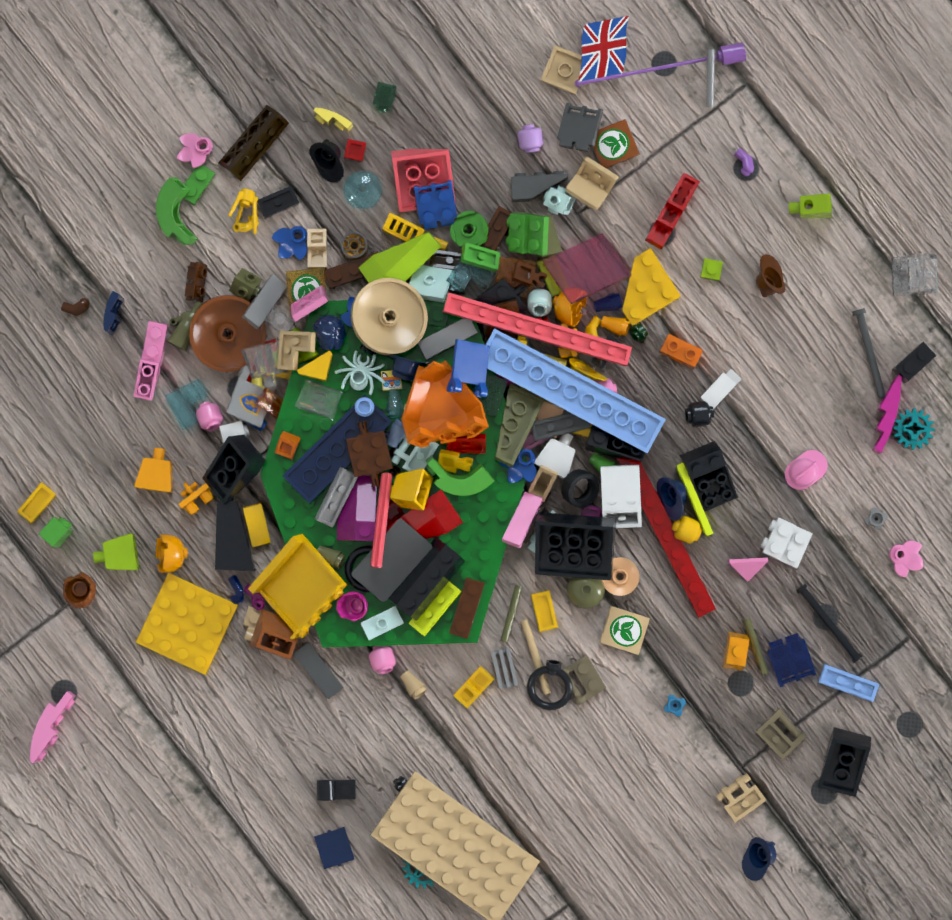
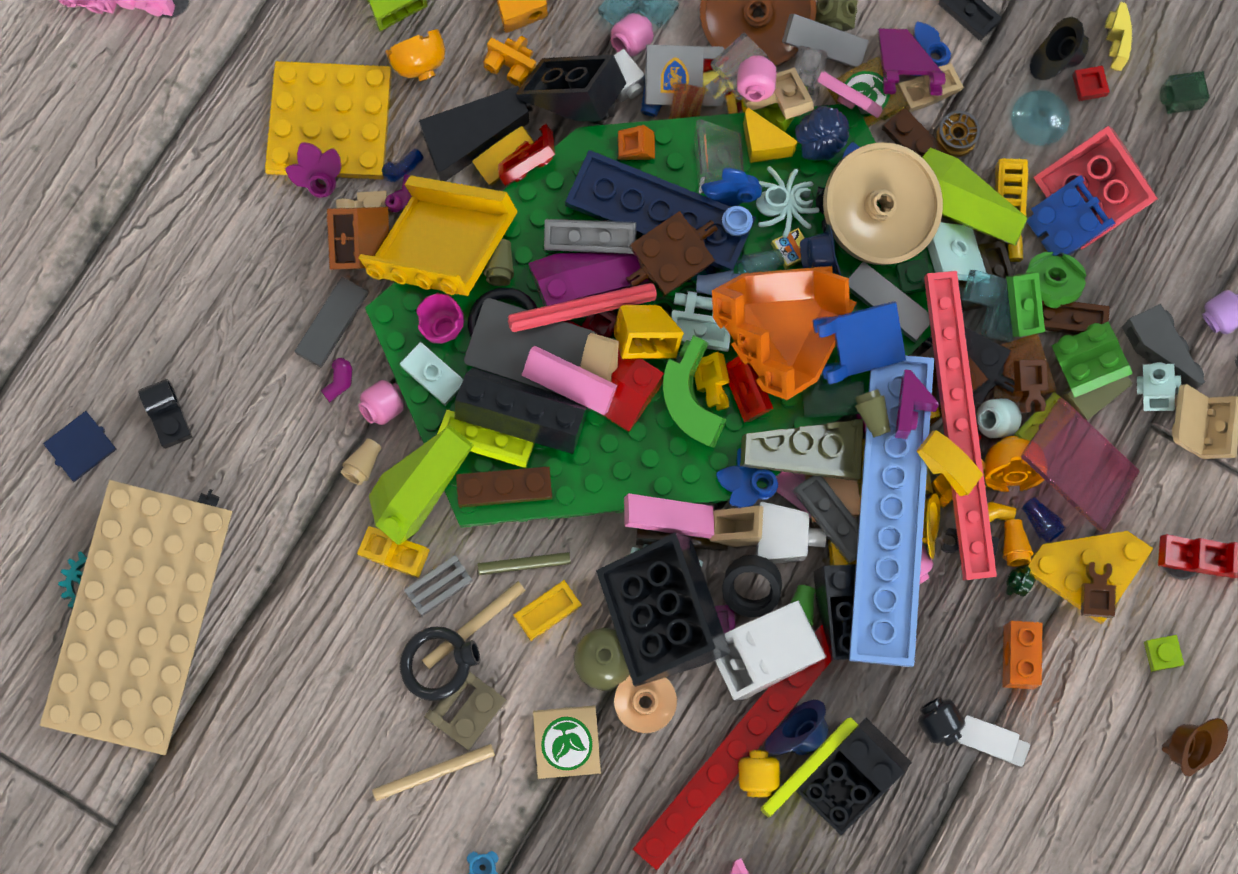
camera: 65 degrees right, 10 degrees down
(219, 644) = (314, 165): none -> magenta plate
(267, 512) = (527, 157): none -> red wing
(282, 358) = (756, 78): none -> bright pink head
(294, 255) = (905, 56): none -> magenta flag
(343, 400) = (733, 188): none -> blue plate
(357, 678) = (341, 379): none -> magenta arm
(422, 527) = (600, 356): none -> tan slope
(423, 546) = (569, 380): none -> bright pink tile
(443, 663) = (415, 484): none -> lime wedge
(513, 353) = (912, 397): none -> magenta slope
(513, 378) = (873, 412): none -> olive cone
(559, 346) = (947, 458): none -> yellow slope
(610, 712) = (433, 772): none -> tan bar
(666, 294) = (1097, 596): none -> reddish brown plate

